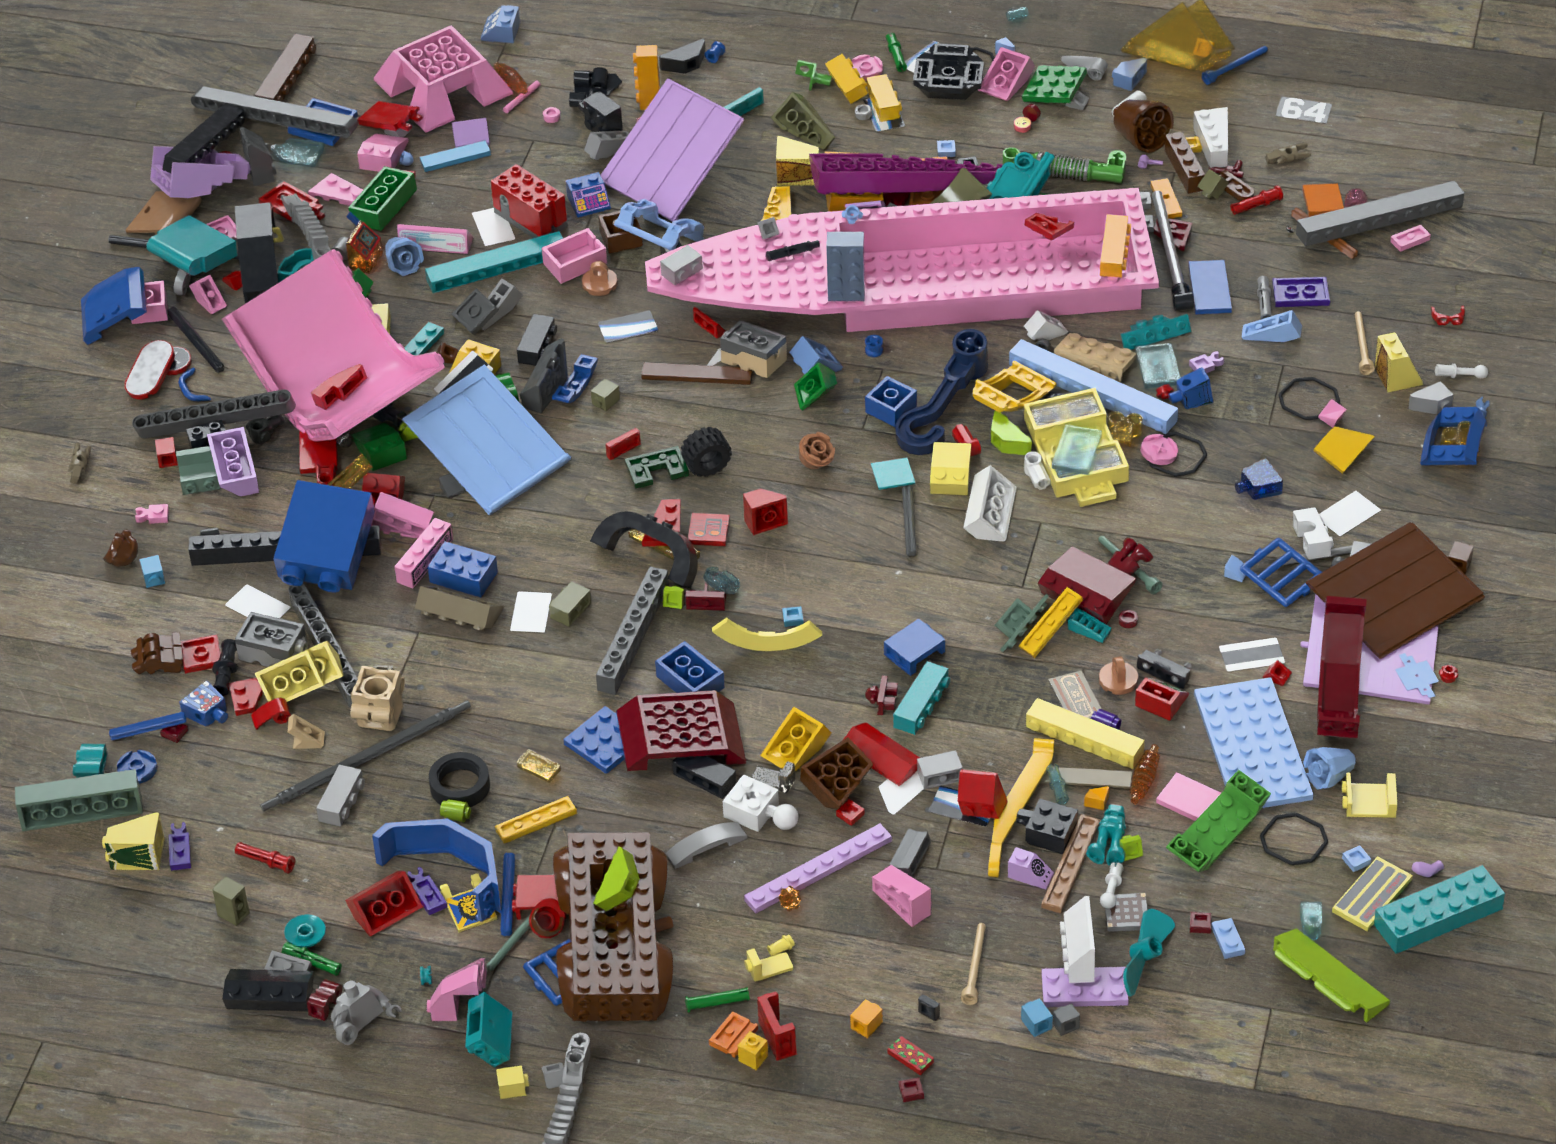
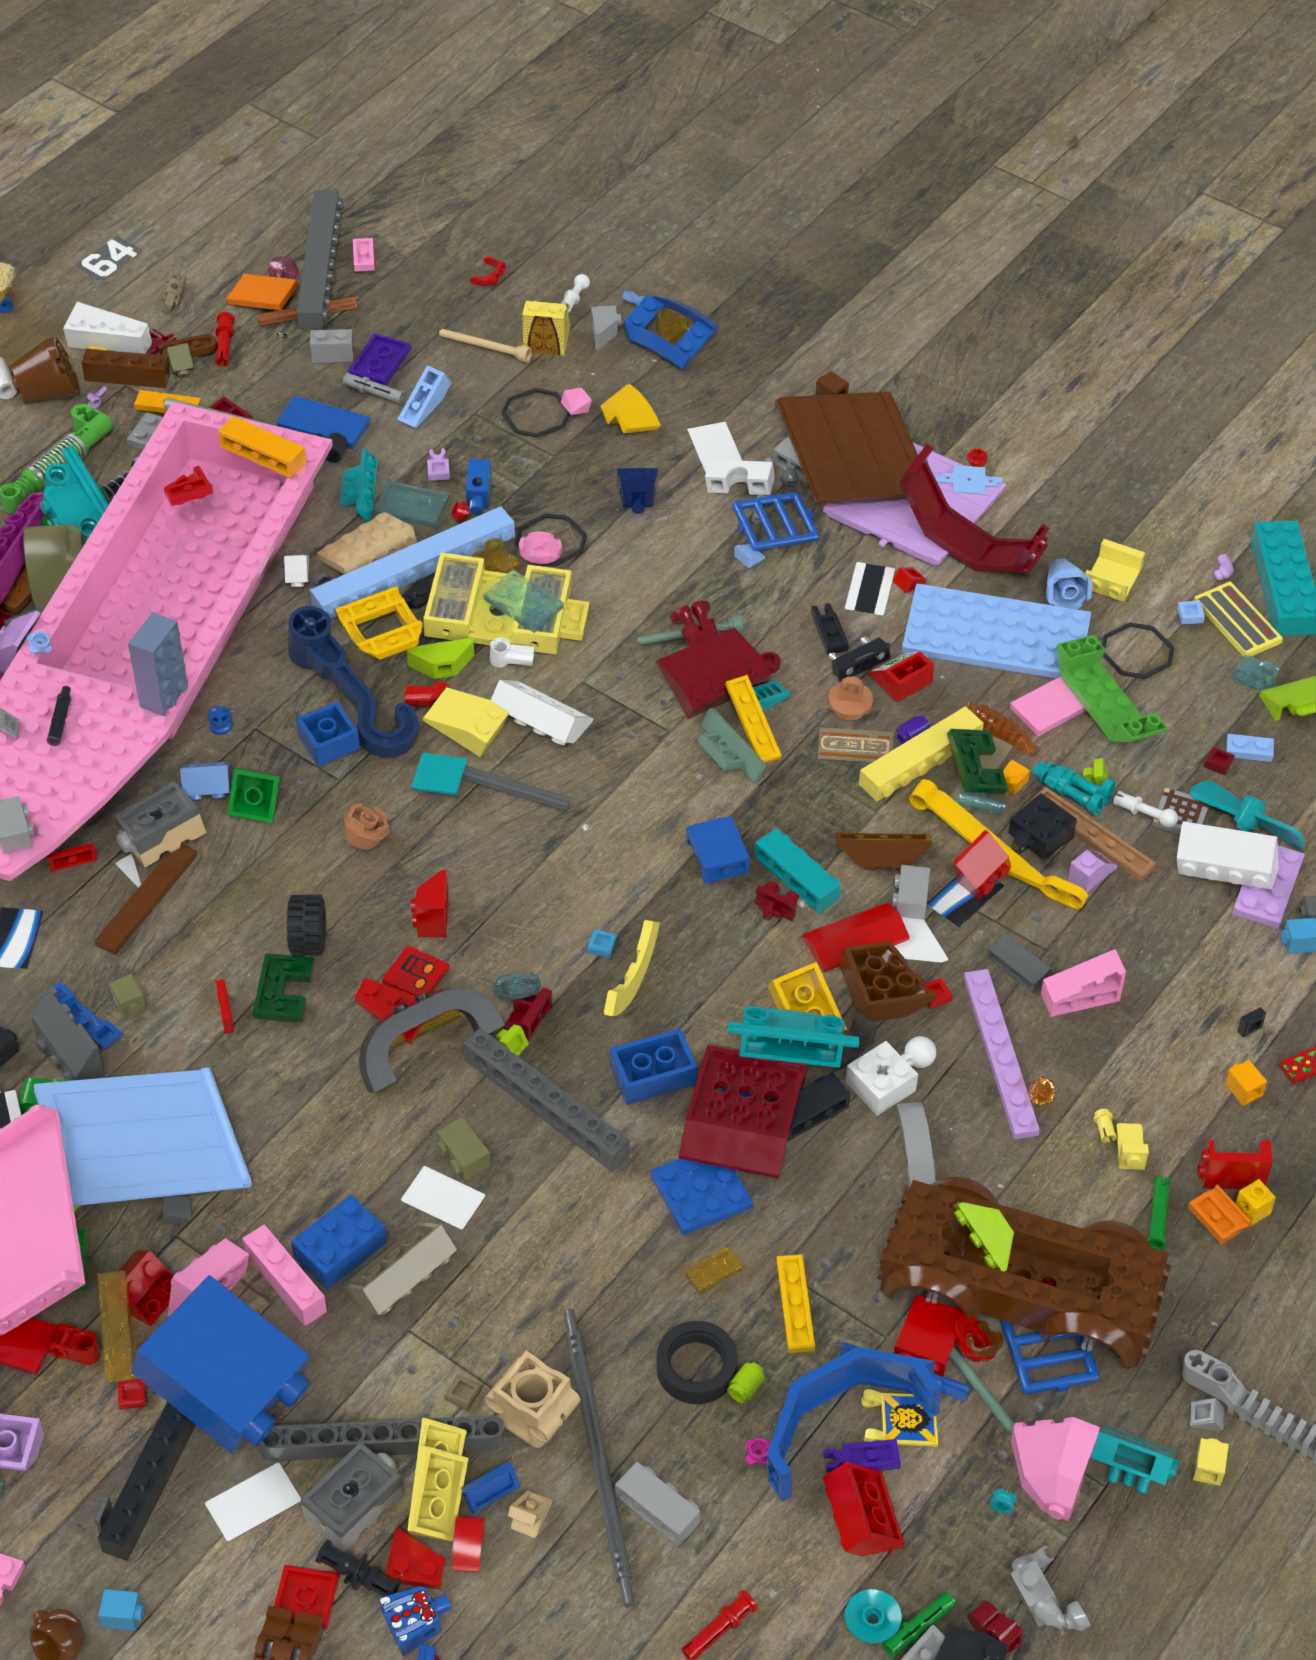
camera: 70 degrees left, 5 degrees up
(314, 709) = (490, 1487): none -> blue tile
(745, 729) = (792, 1036): none -> teal brick
(968, 733) = (883, 849): none -> reddish brown wedge
(969, 993) = (1243, 981): tan piece -> none
(1073, 765) = (965, 747): none -> dark green plate
(1185, 640) = (830, 629): none -> black hinge
(1290, 258) = (331, 346): none -> light grey brick

